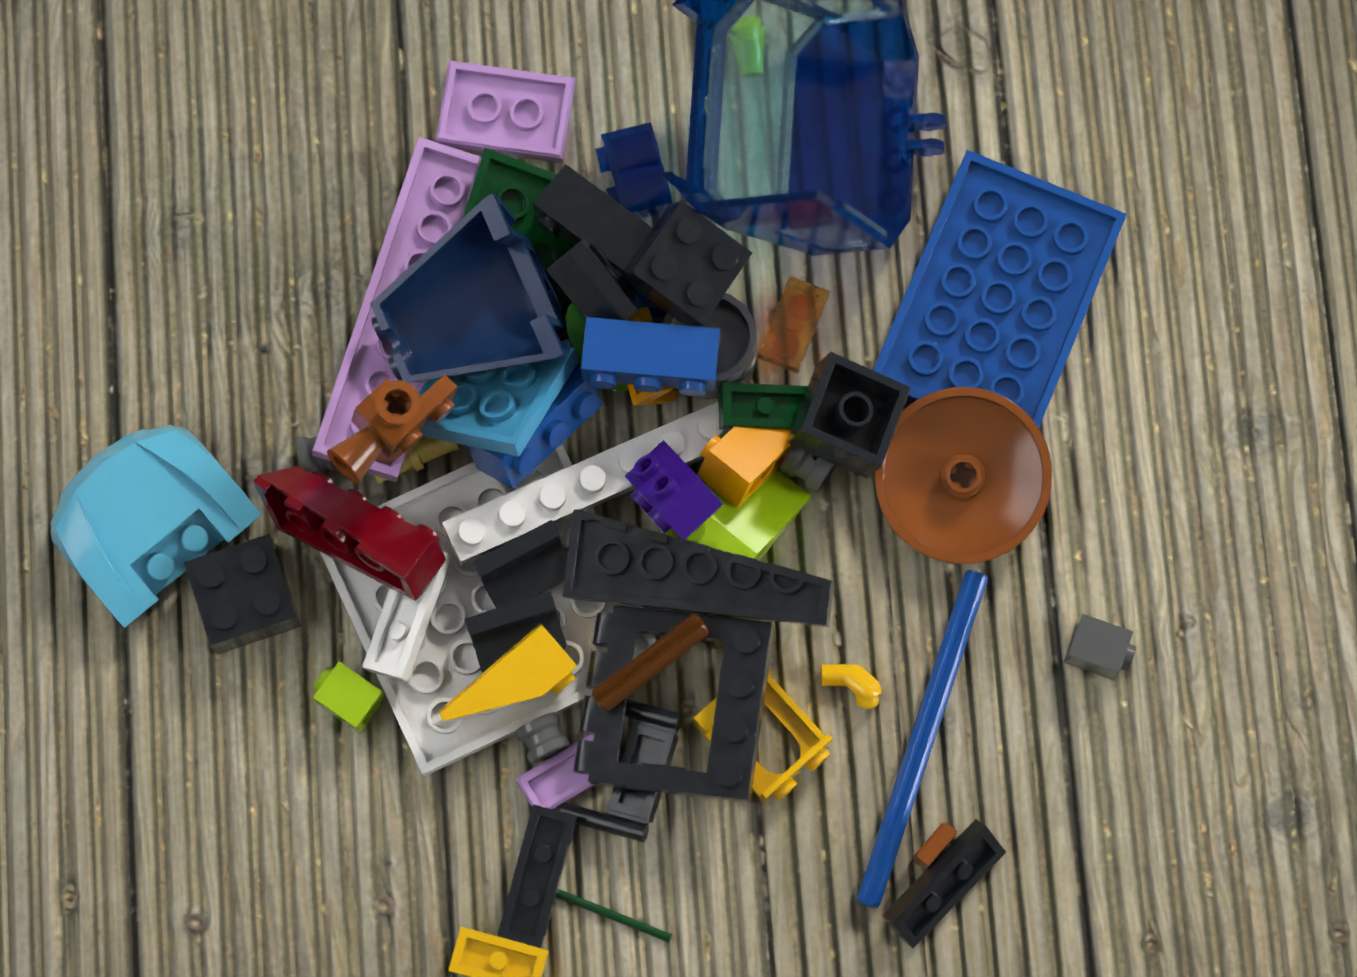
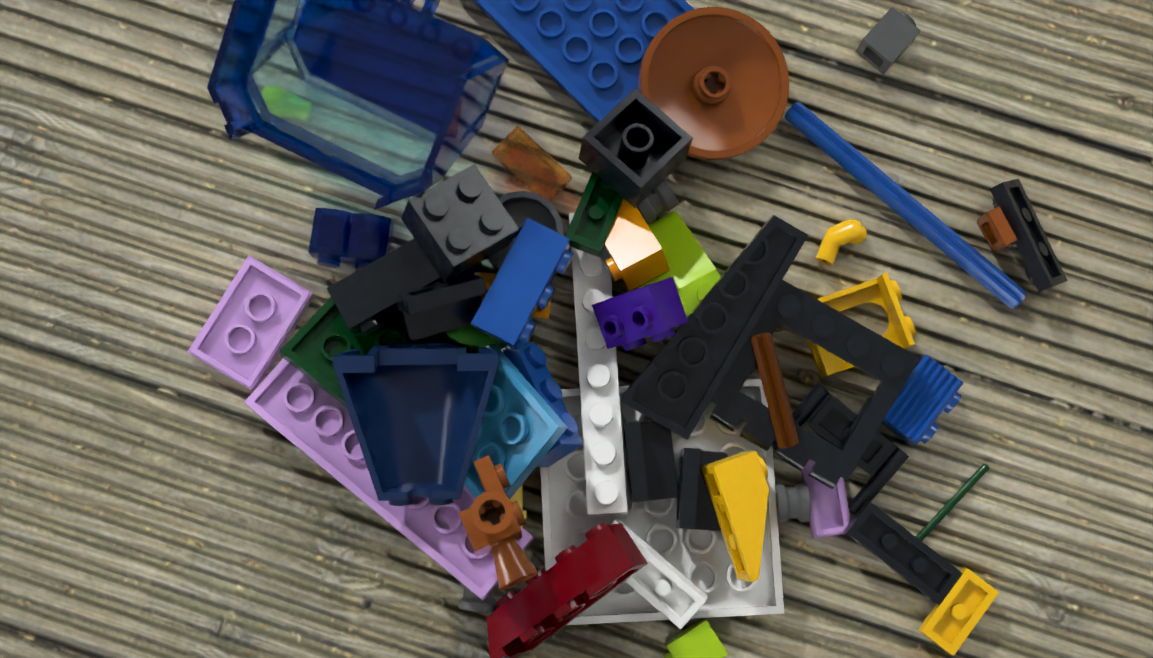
camera: 65 degrees left, 5 degrees up
(708, 833) = (922, 400): none -> blue brick

